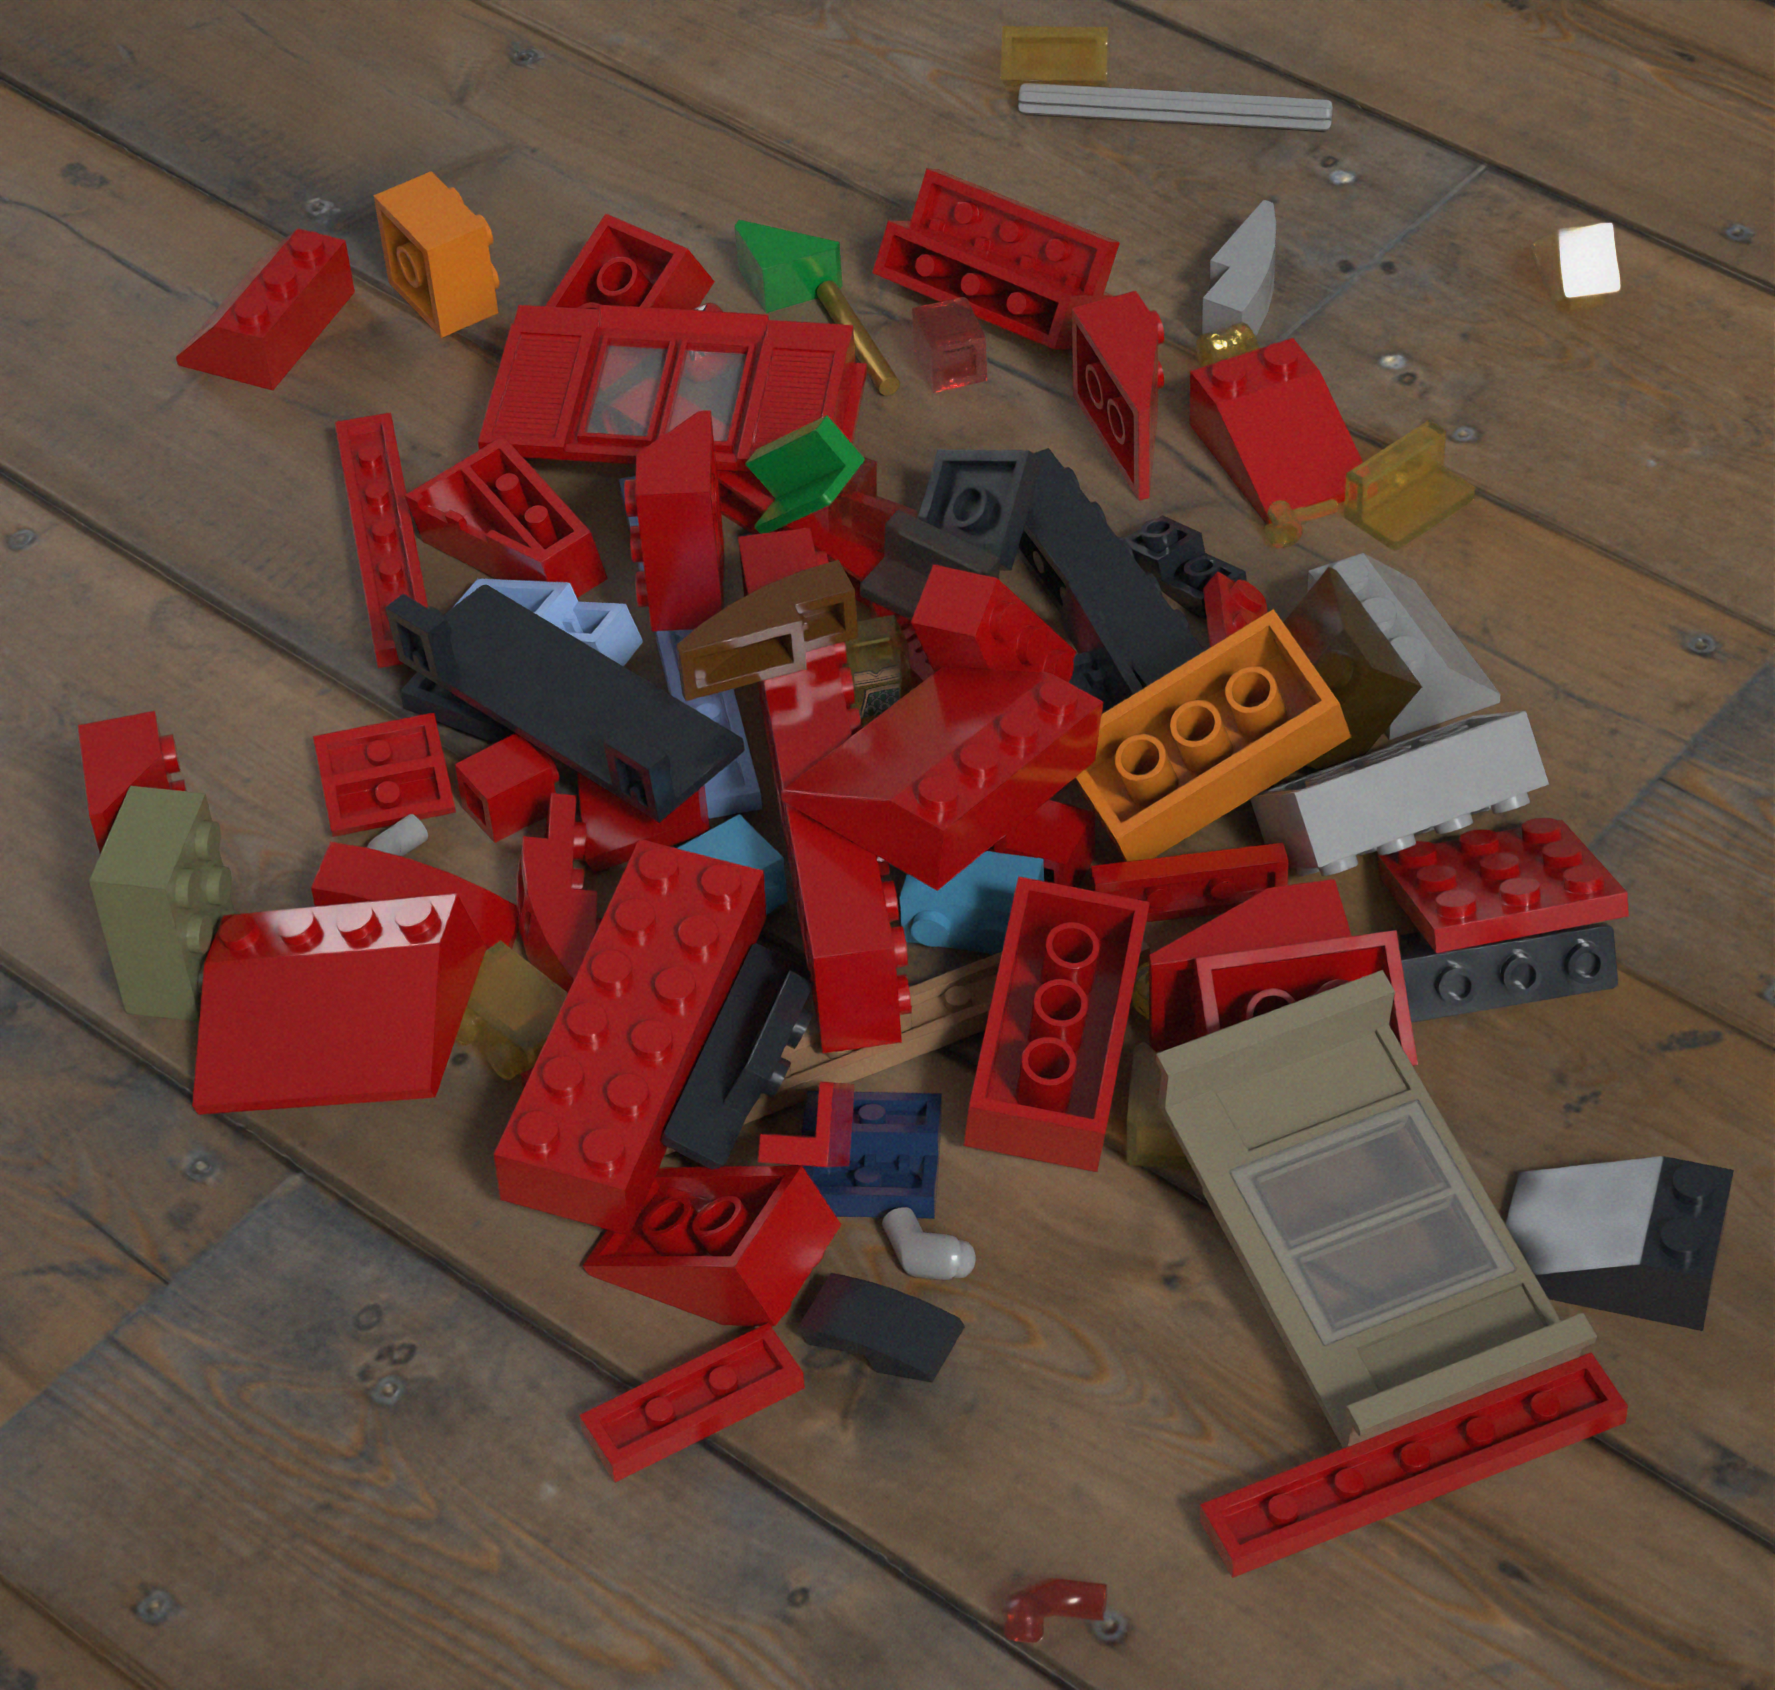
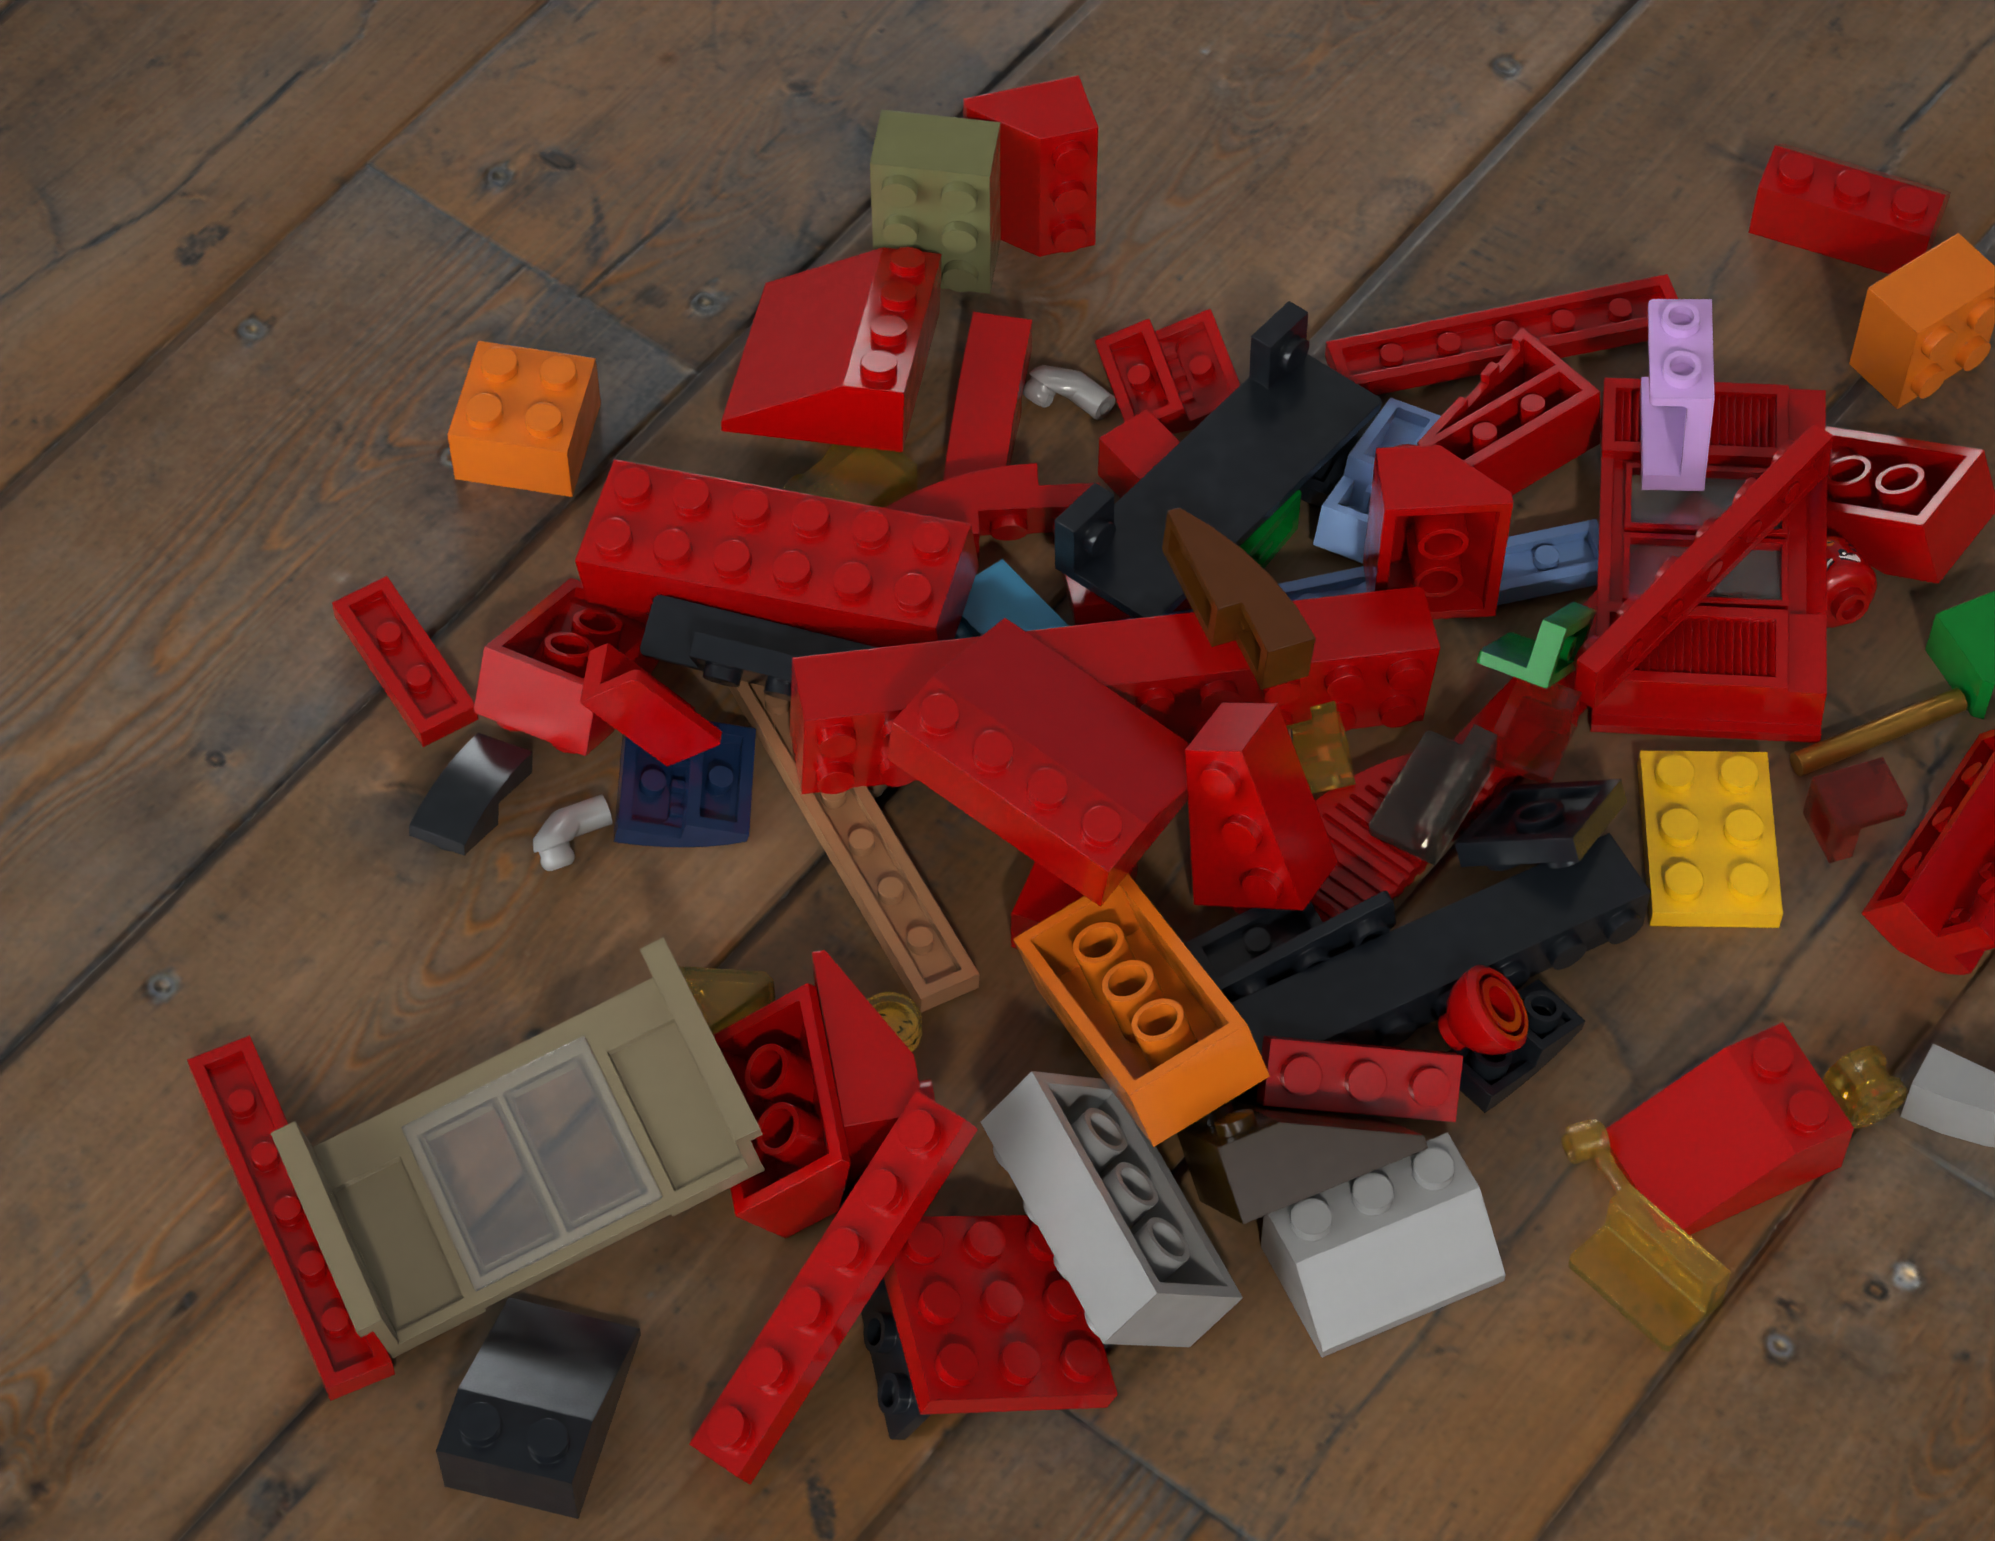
camera: 85 degrees right, 10 degrees up
(368, 1296) = (524, 418): none -> orange brick
(556, 348) = (1677, 395): none -> lavender panel
(709, 356) = (1714, 553): none -> red plate
(919, 425) = (1709, 839): none -> yellow plate
(971, 907) = (979, 873): dark azure brick -> none
(1052, 1598) = (178, 928): clear red arm -> none
(1056, 1024) = (782, 891): red brick -> none
(1120, 380) = (1758, 965): red slope -> none
(1179, 554) = (1484, 1014): none -> red brick
(1195, 882) = (1016, 1034): red plate -> none
(1505, 973) = (833, 1287): none -> red plate

